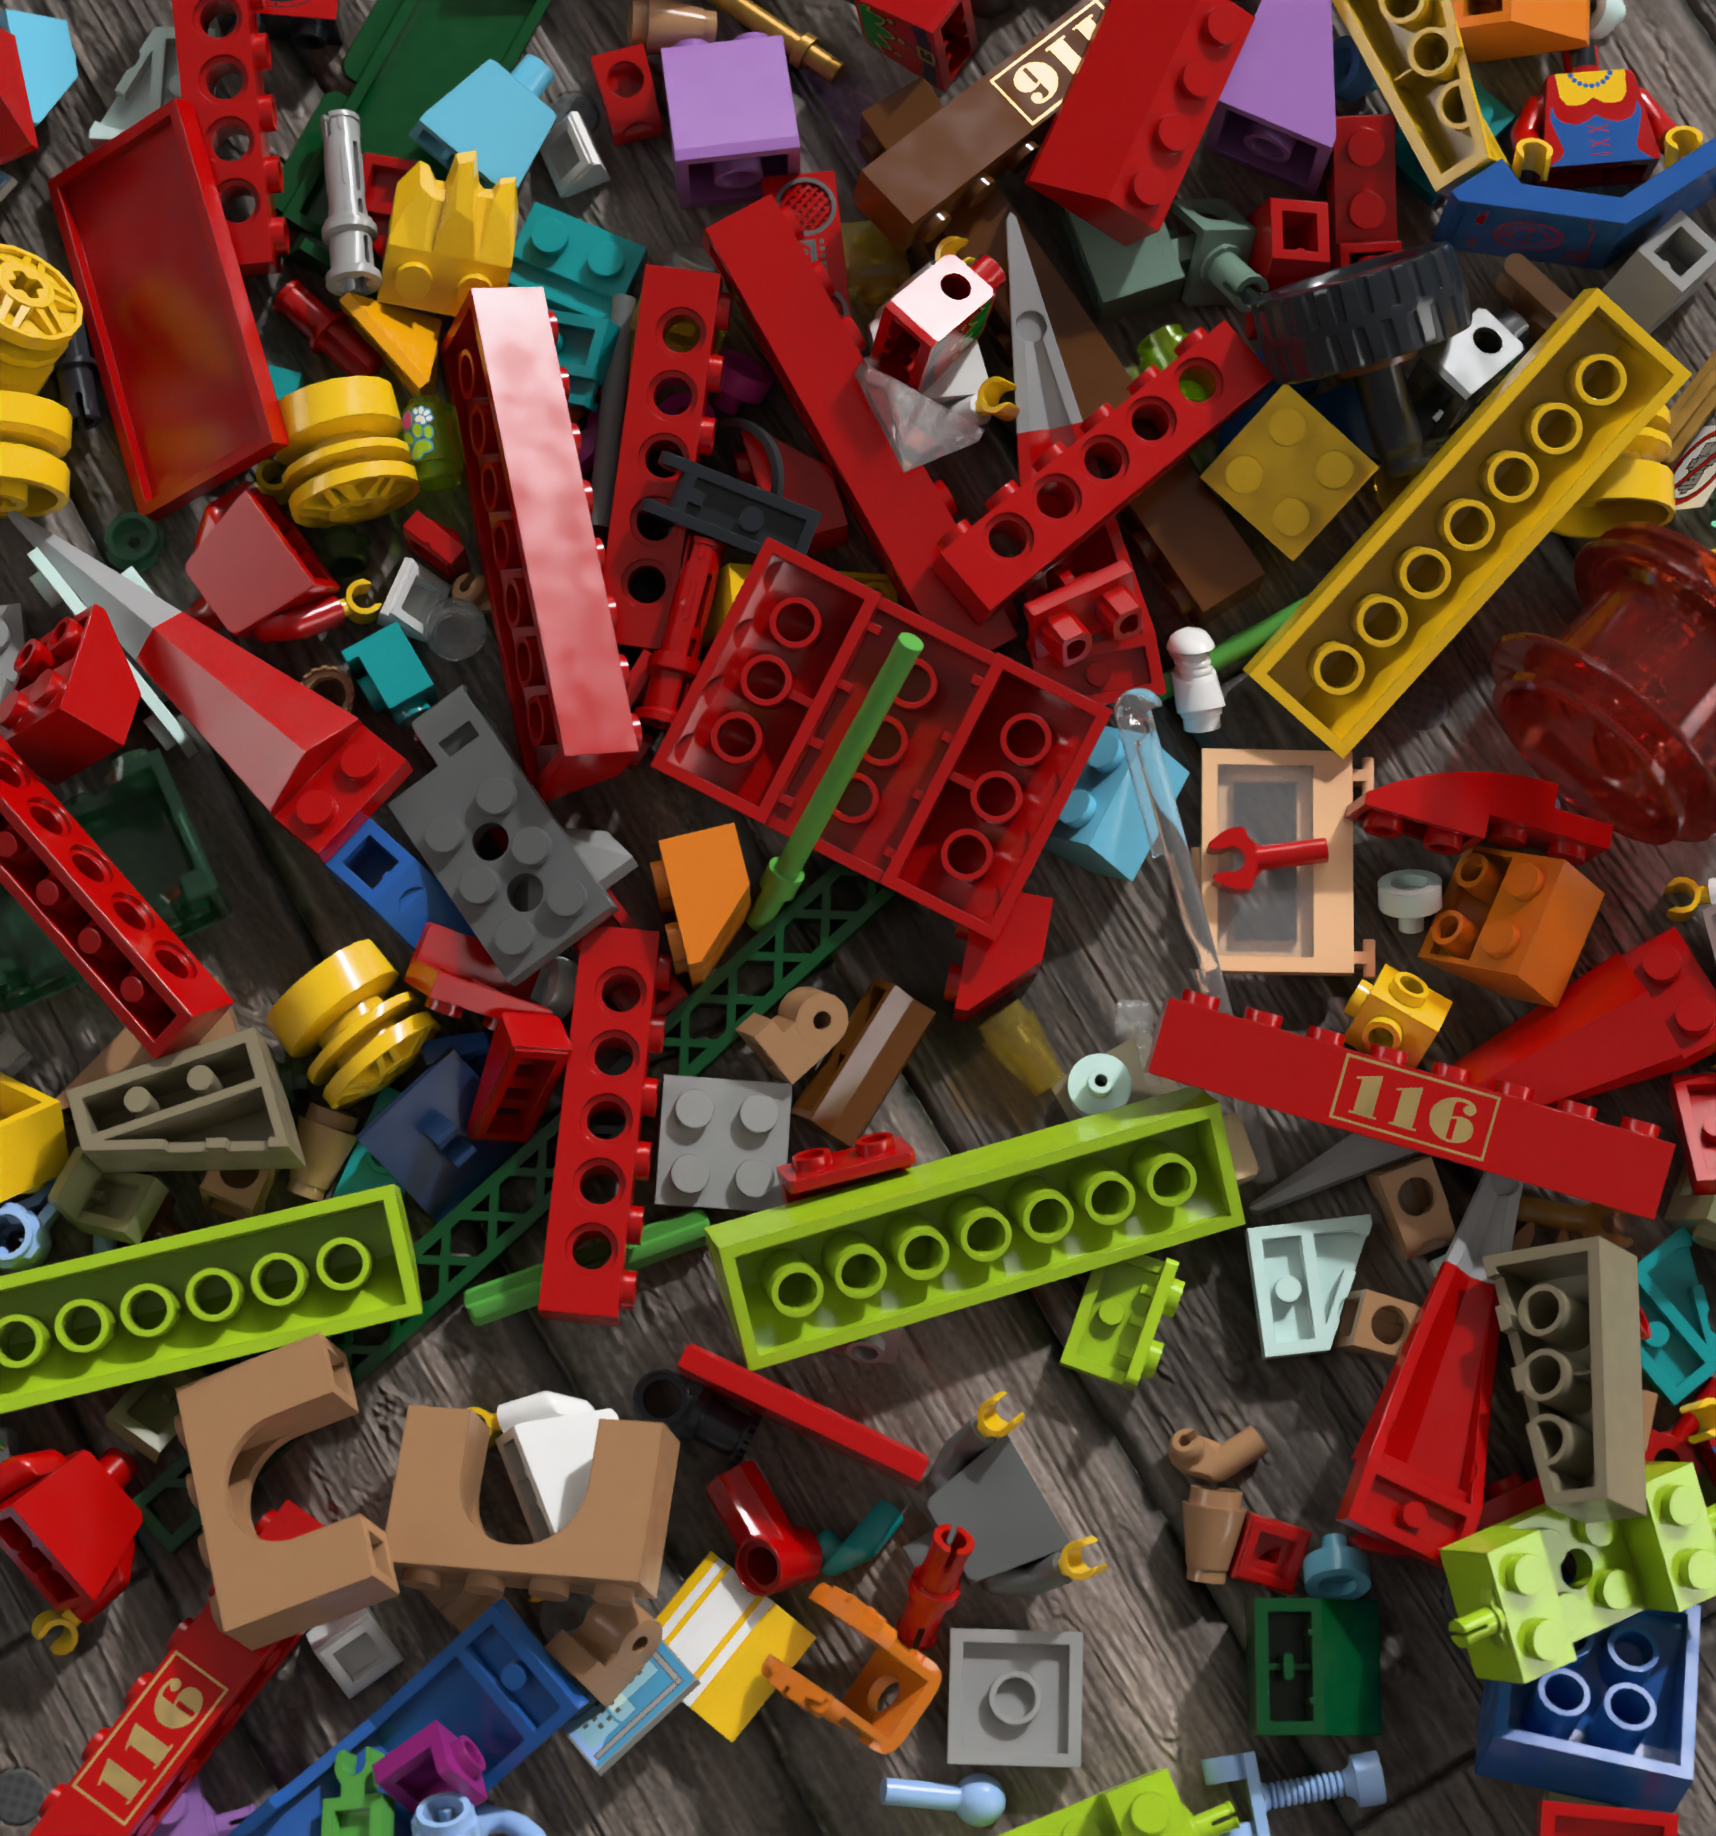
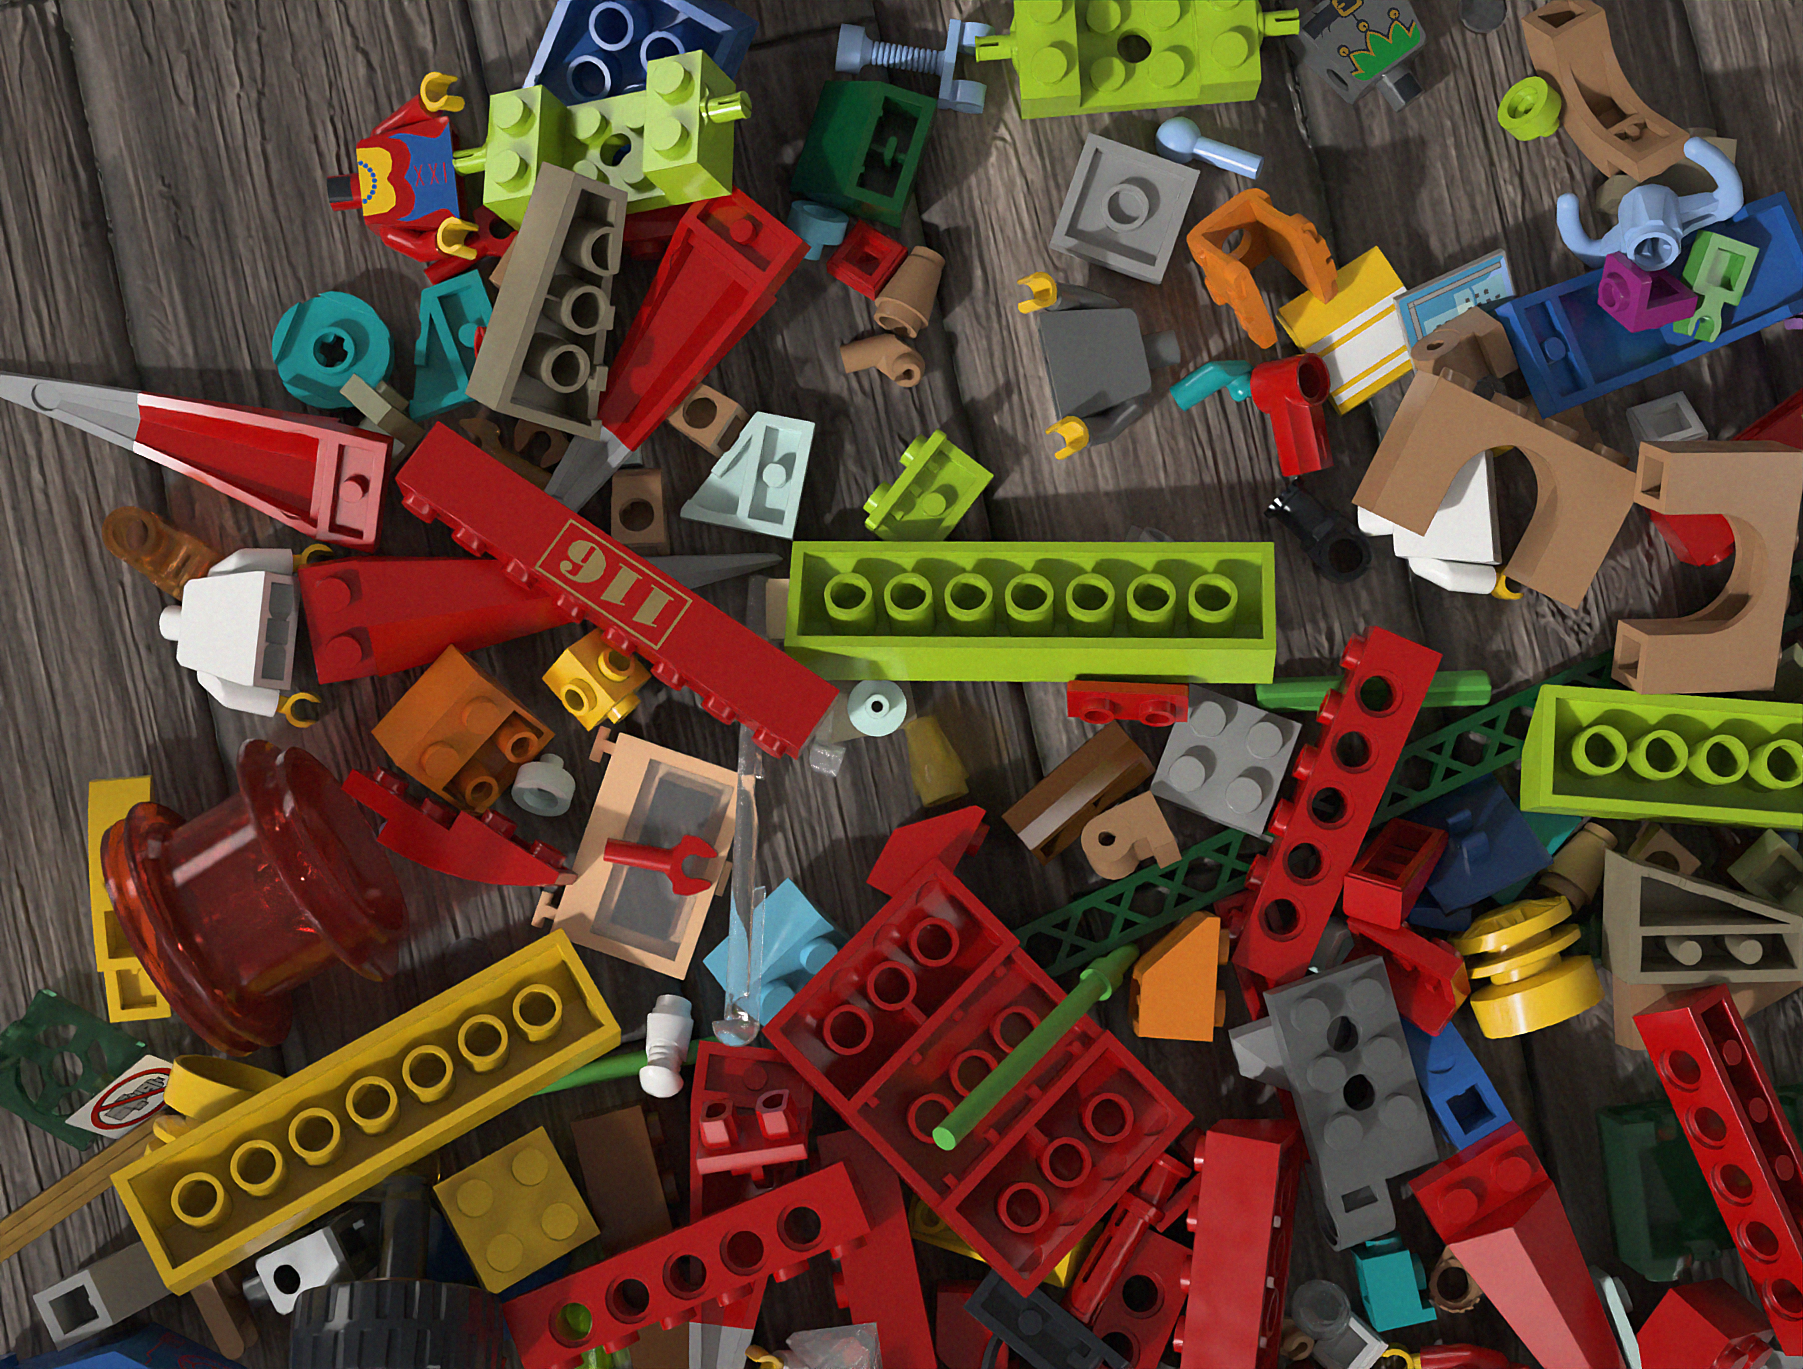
camera: 155 degrees left, 10 degrees up
(803, 1416) = (1234, 493): red tile -> none
(934, 1586) = (1166, 316): red pin -> none

